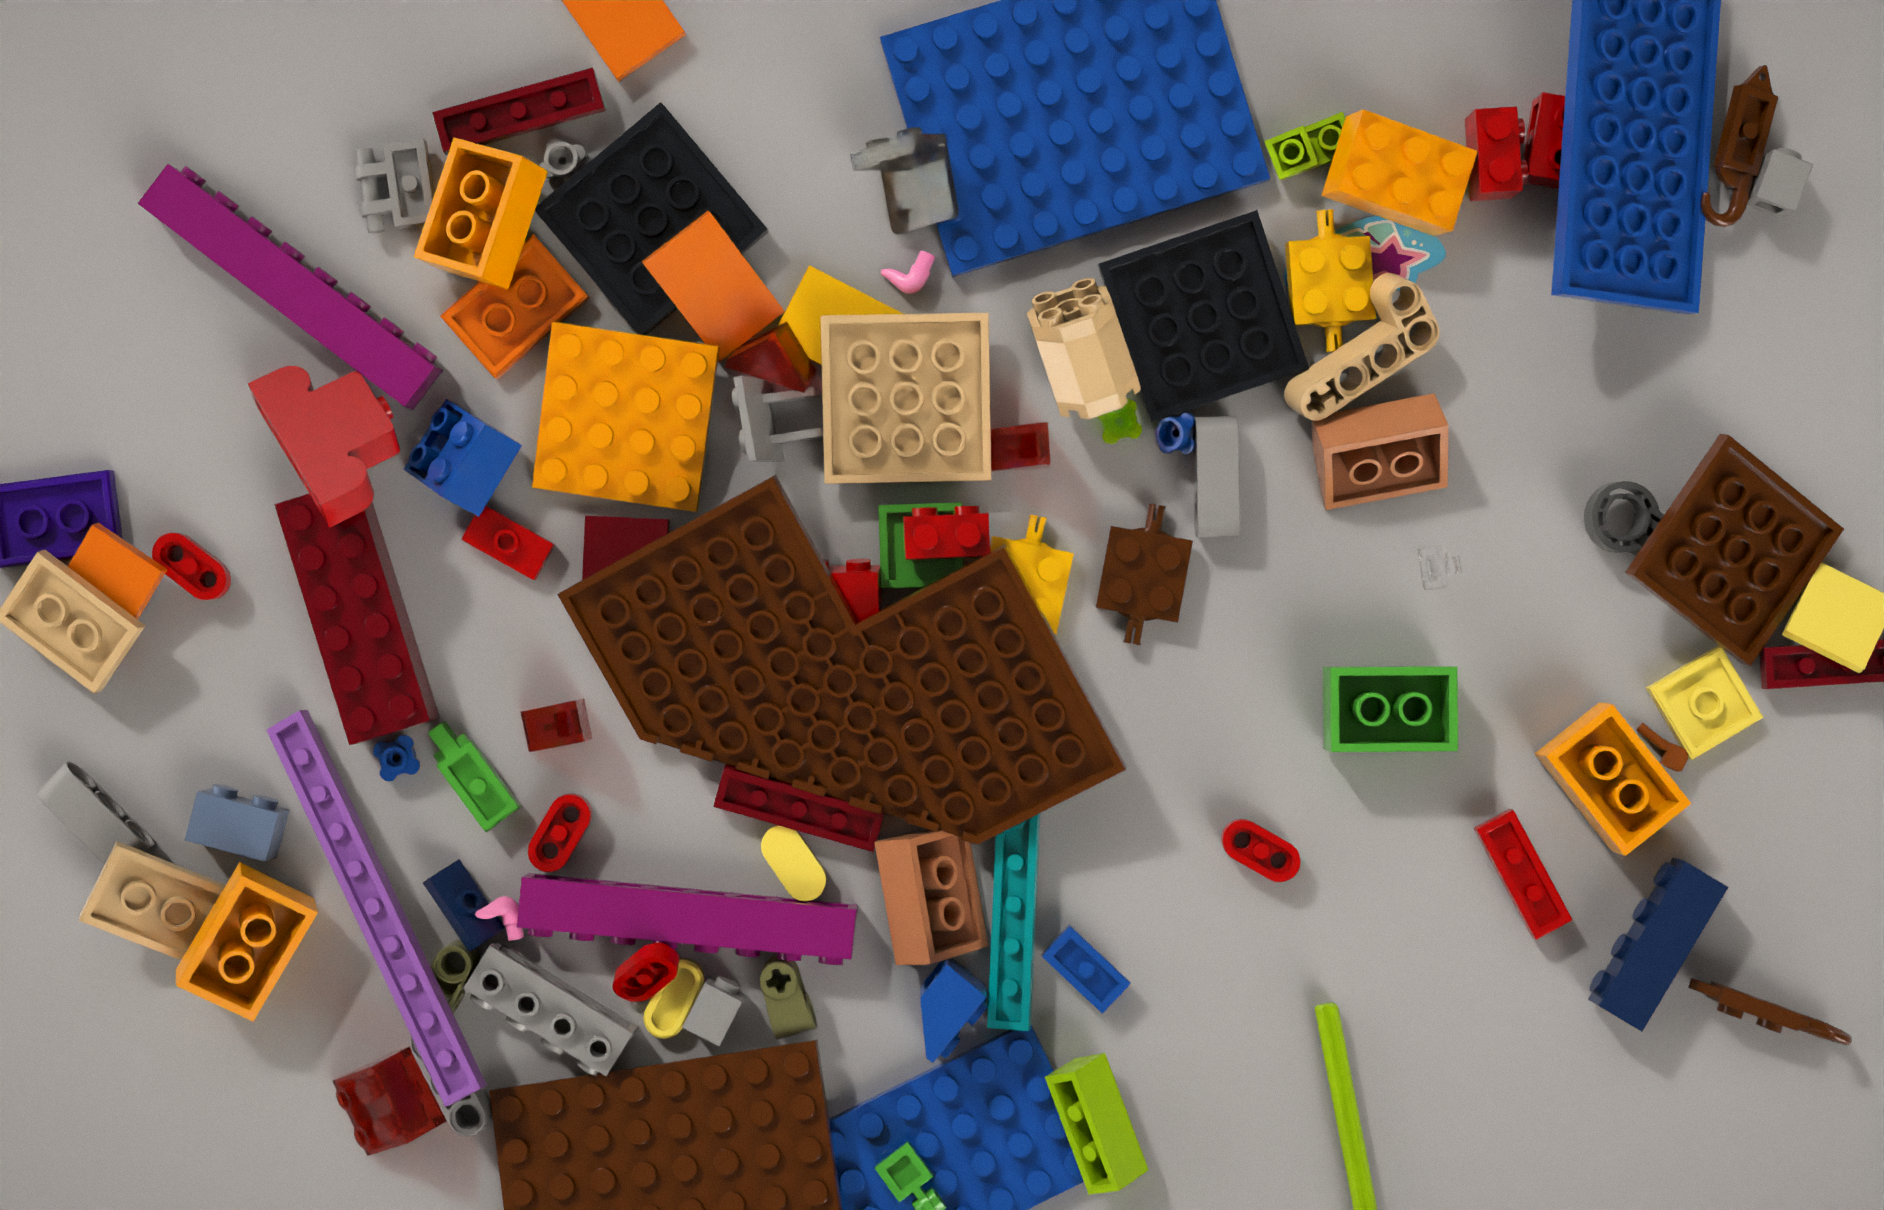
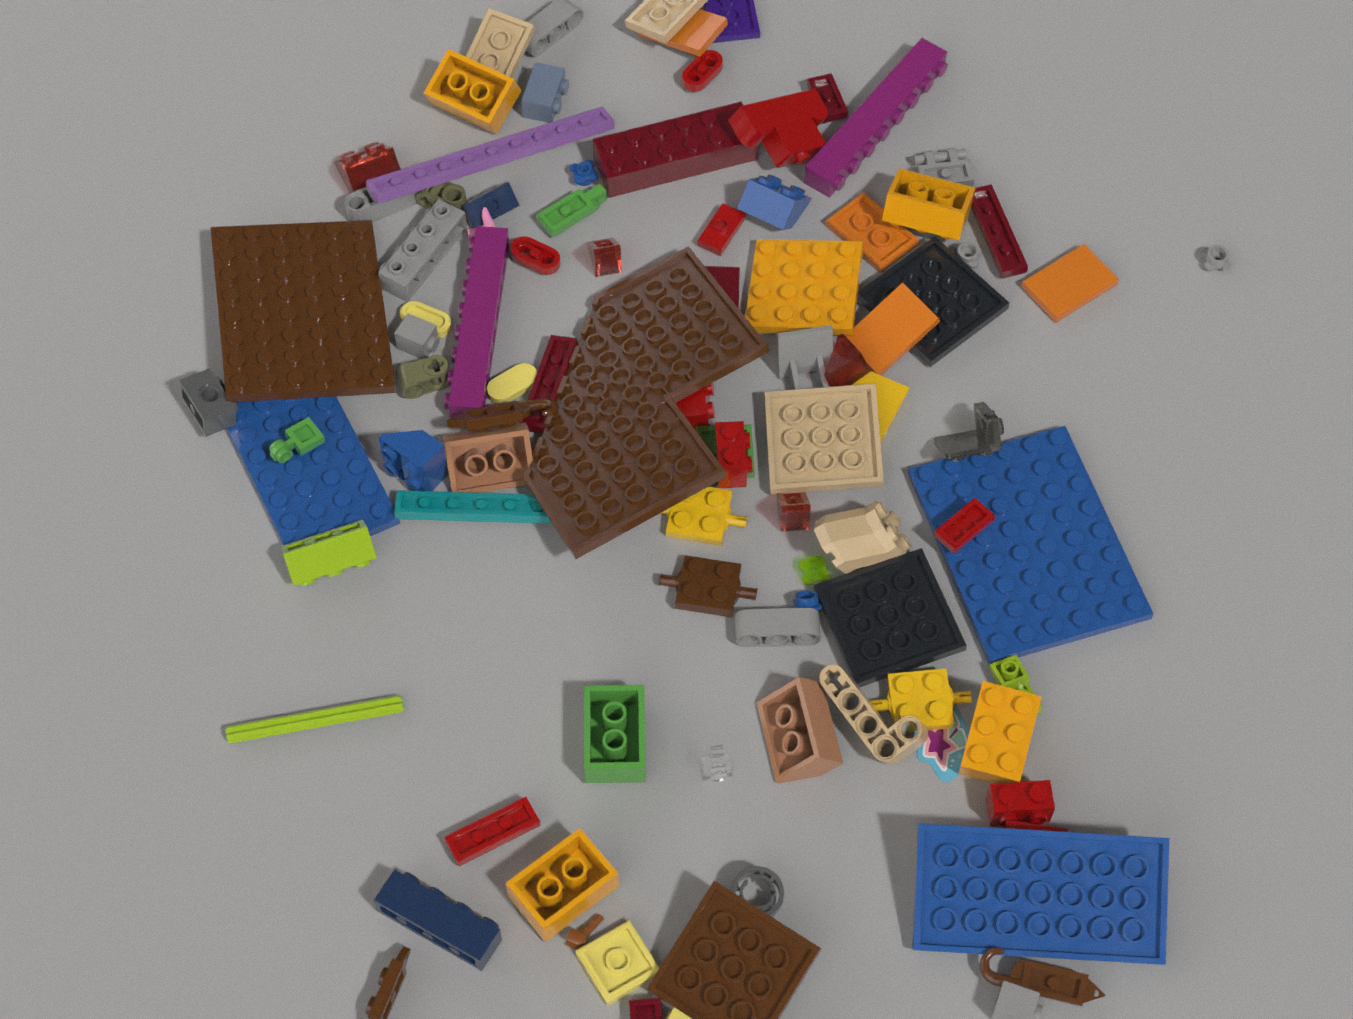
camera: 90 degrees right, 30 degrees down
(237, 366) = (830, 96): none -> dark red plate
(646, 972) = (444, 296): red plate -> none
(870, 880) = (501, 414): none -> reddish brown plate
(916, 278) = (905, 450): bright pink animal -> none
(1065, 198) = (964, 525): none -> red plate
(1085, 969) = (434, 551): blue plate -> none
(1259, 849) = (513, 660): red plate -> none

